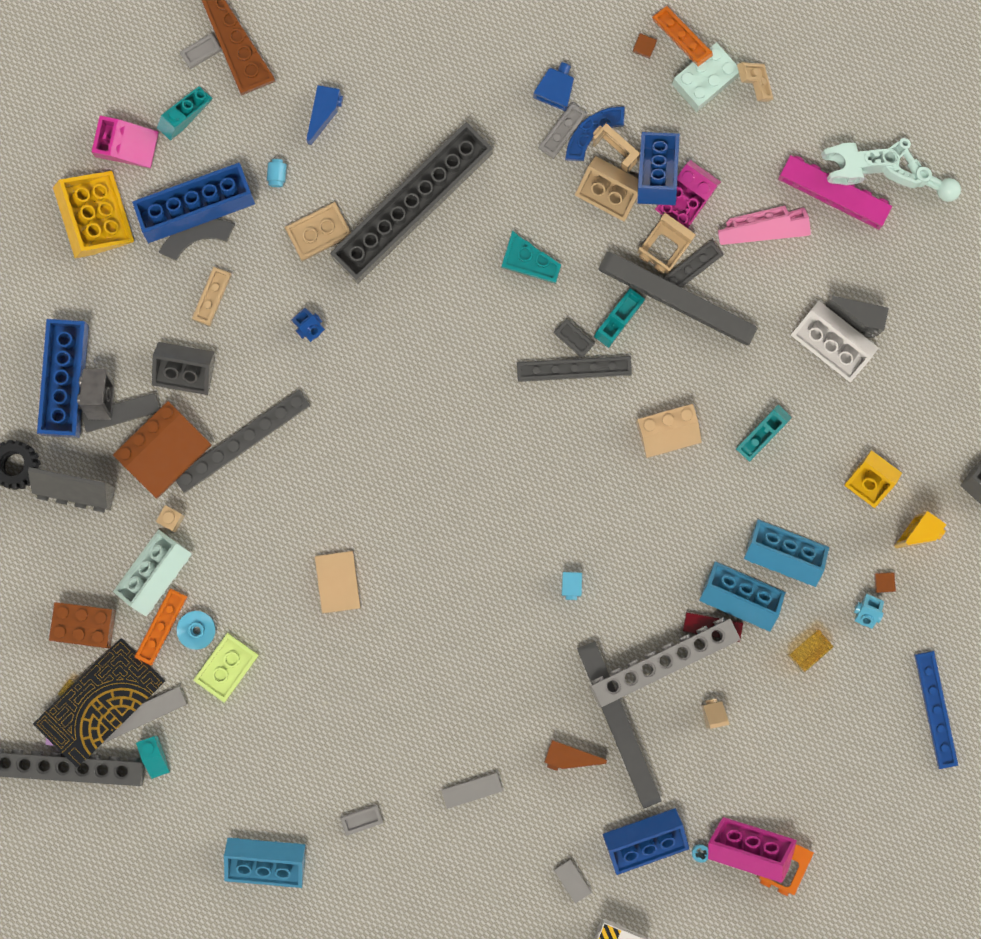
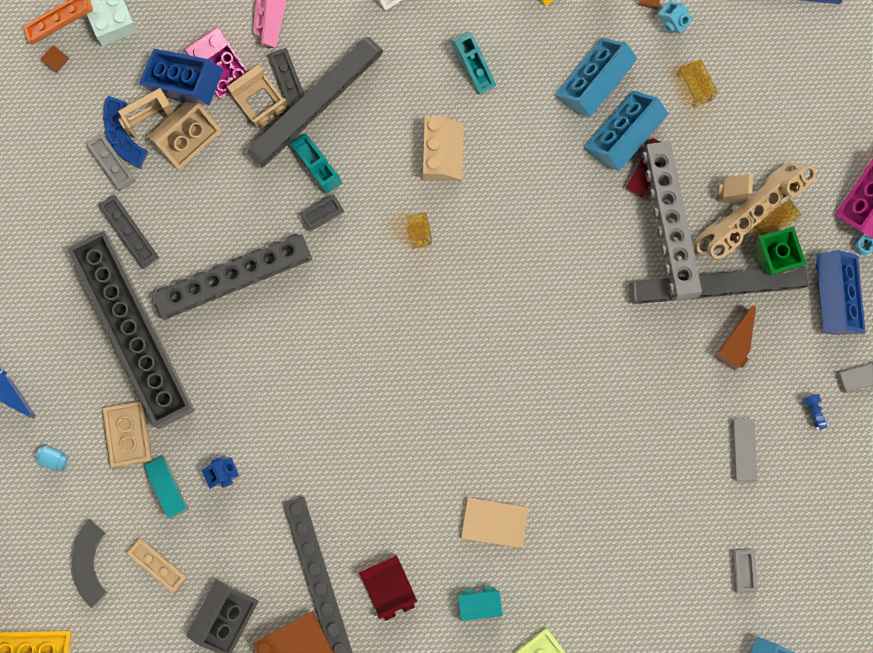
camera: 70 degrees left, 5 degrees down
(193, 203) = (52, 554): blue brick -> none
(252, 505) = (388, 588): none -> dark red panel
(261, 590) = (480, 605): none -> teal brick
(281, 281) = (166, 487): none -> teal slope
(503, 169) = (128, 231): none -> dark grey tile
(527, 331) = (226, 286): none -> dark grey brick
(529, 261) = (229, 233): teal wing -> none
(535, 841) = (818, 418): none -> blue piece
(555, 87) = (65, 154): blue torso -> none
(571, 585) = (567, 289): medium azure brick -> none
(574, 368) = (351, 223): dark grey tile -> none
(582, 432) = (419, 230): none -> clear yellow panel
(666, 772) = (779, 251): none -> green slope
(697, 762) = (778, 219): none -> clear yellow panel
(730, 757) = (778, 185): none -> tan piece

